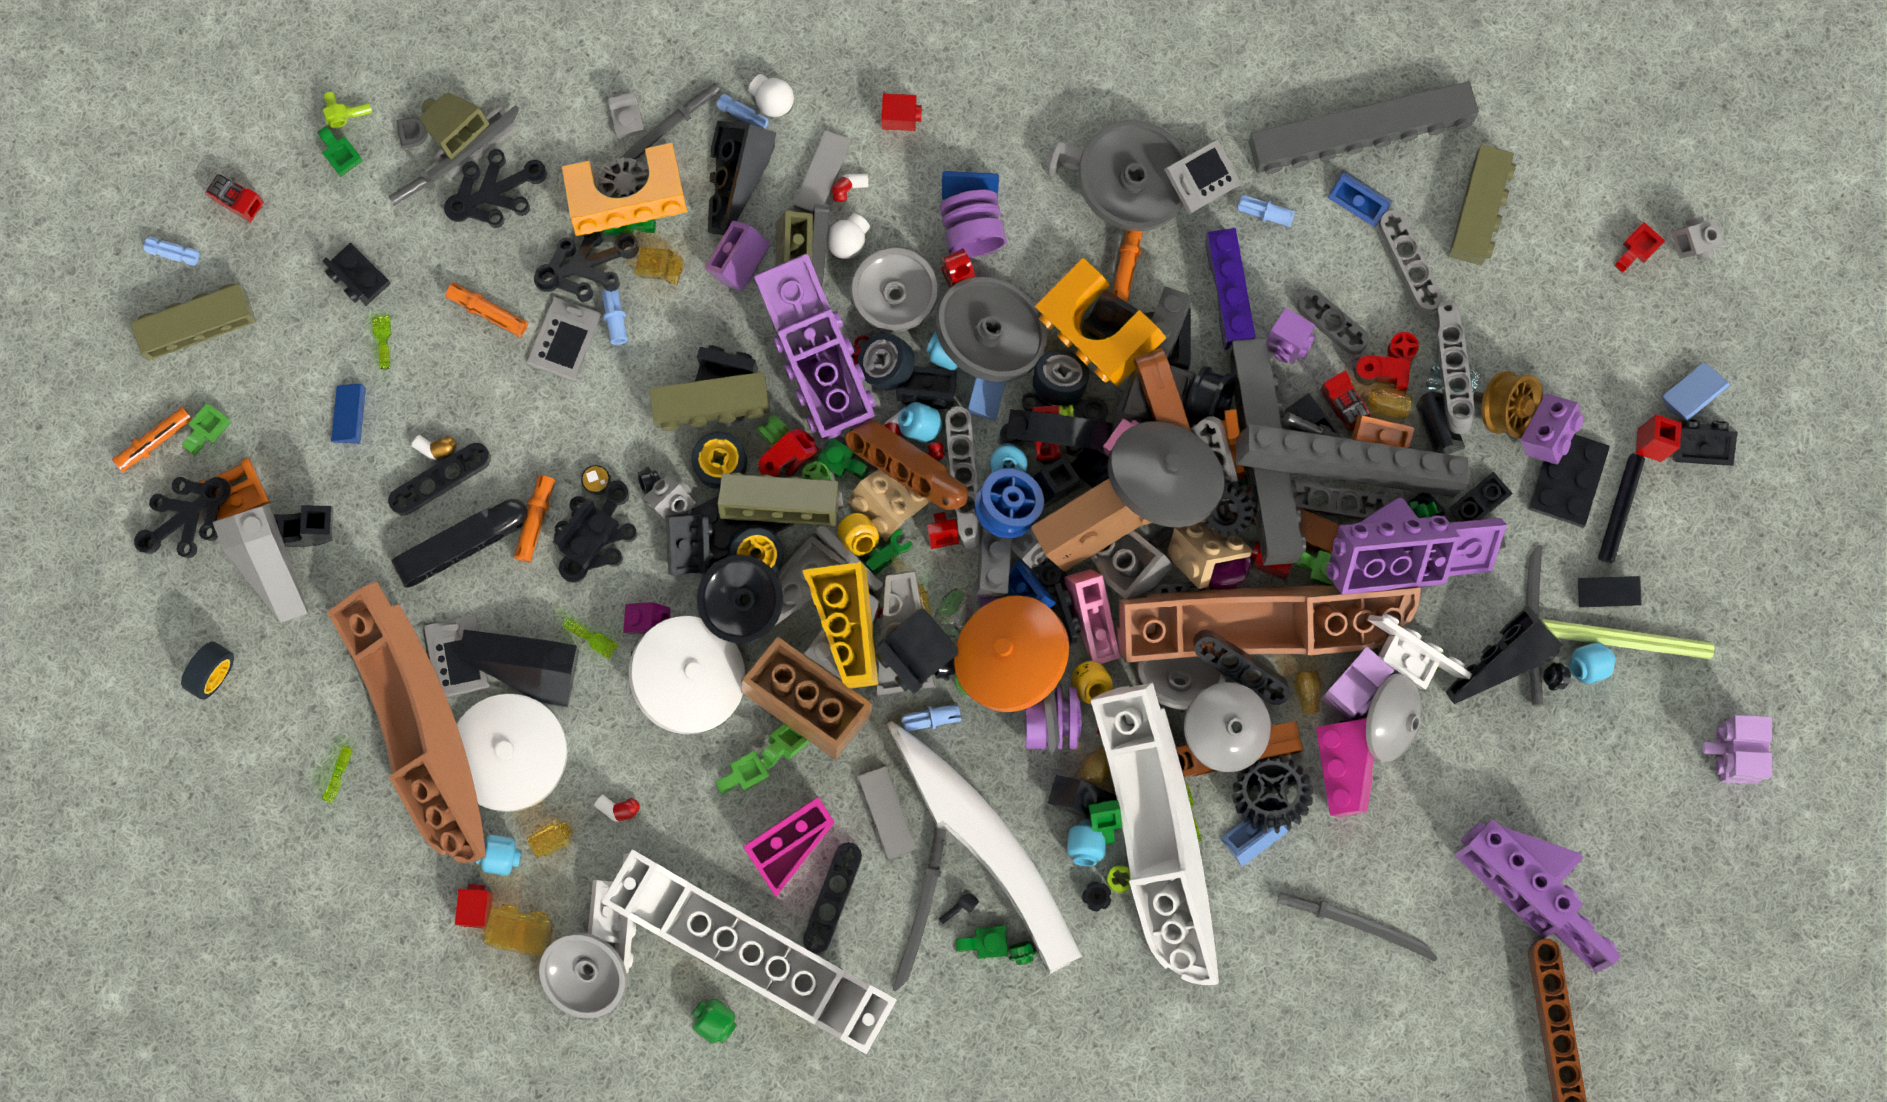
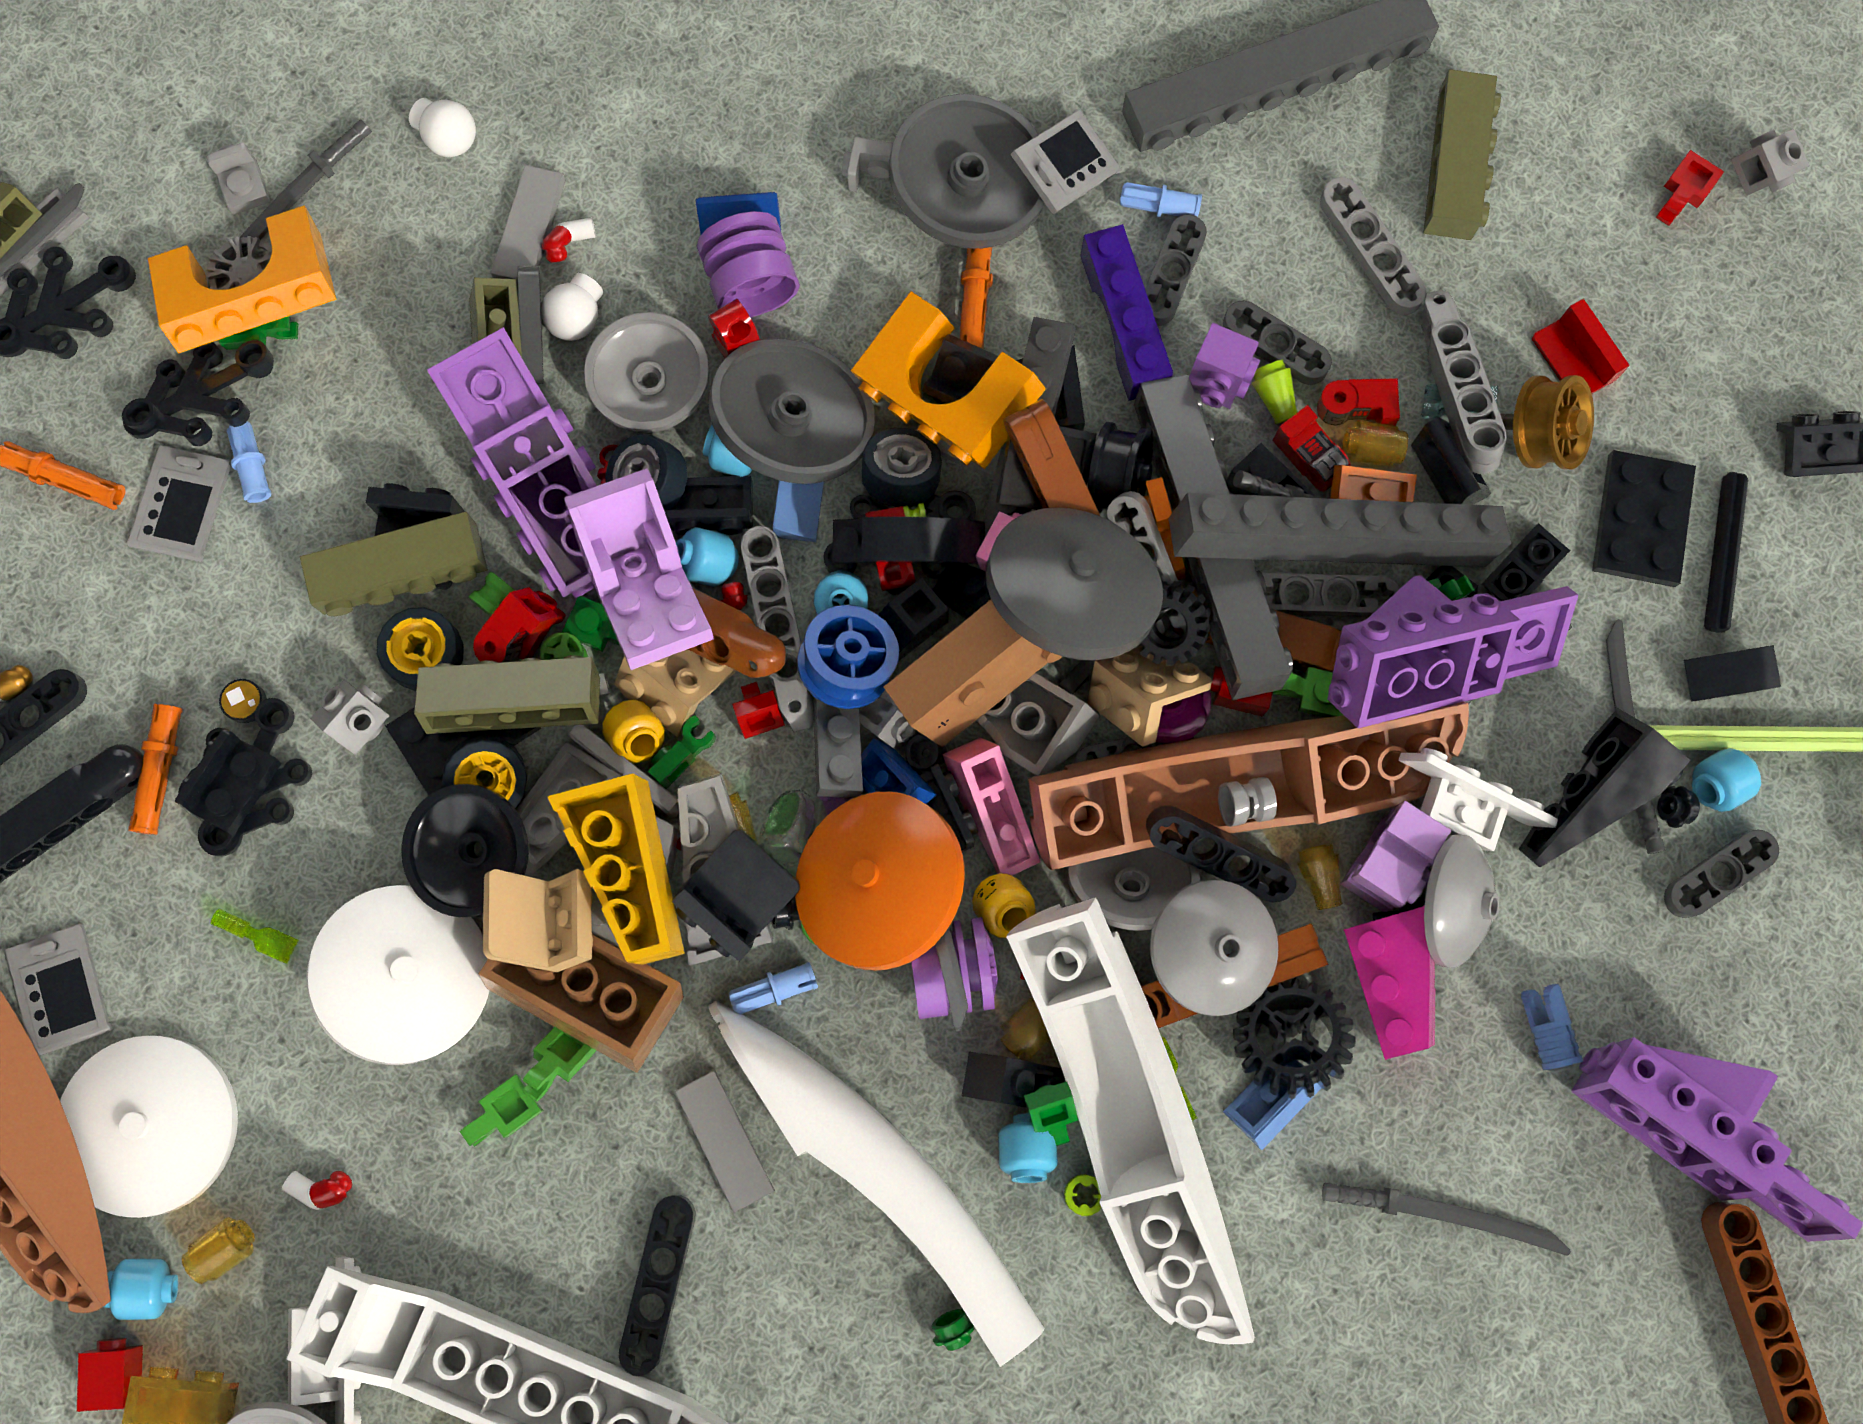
camera: 10 degrees left, 0 degrees up
(529, 665) = (164, 990): black wedge -> none
(644, 616) = (328, 892): magenta bracket -> none
(647, 479) = (316, 689): black plate -> none
(659, 264) = (306, 380): clear yellow bracket -> none
(688, 544) = (383, 777): black bracket -> none
(737, 255) = (413, 345): medium lavender brick -> none
(741, 112) = (405, 157): light blue axle -> none
(741, 158) = (409, 213): black wedge -> none
(787, 650) = (537, 920): none -> tan bracket
(788, 843) = (577, 1212): dark pink wedge -> none
(875, 427) = (637, 569): none -> lavender bracket
(900, 112) = (627, 127): red brick -> none
(932, 874) = (803, 1227): dark grey sword -> none
(967, 902) = (861, 1263): black hand -> none
(989, 943) = (901, 1321): green plate -> none
(1096, 888) = (1053, 1239): black plate -> none
(1263, 634) = (1247, 801): none -> light grey wheel
(1279, 258) = (1170, 253): none -> dark grey beam
(1327, 356) = (1276, 390): none -> lime cone
(1360, 199) = (1288, 170): blue slope -> none
(1404, 342) = (1386, 357): red wheel -> none
(1447, 811) = (1553, 1034): none -> medium blue hinge
(1543, 355) = (1581, 347): none -> red panel
(1552, 429) = (1615, 450): medium lavender brick -> none
(1595, 709) = (1738, 846): none -> dark grey beam
(1658, 438) = (1766, 445): red brick -> none
(1694, 392) = (1802, 375): medium blue slope -> none

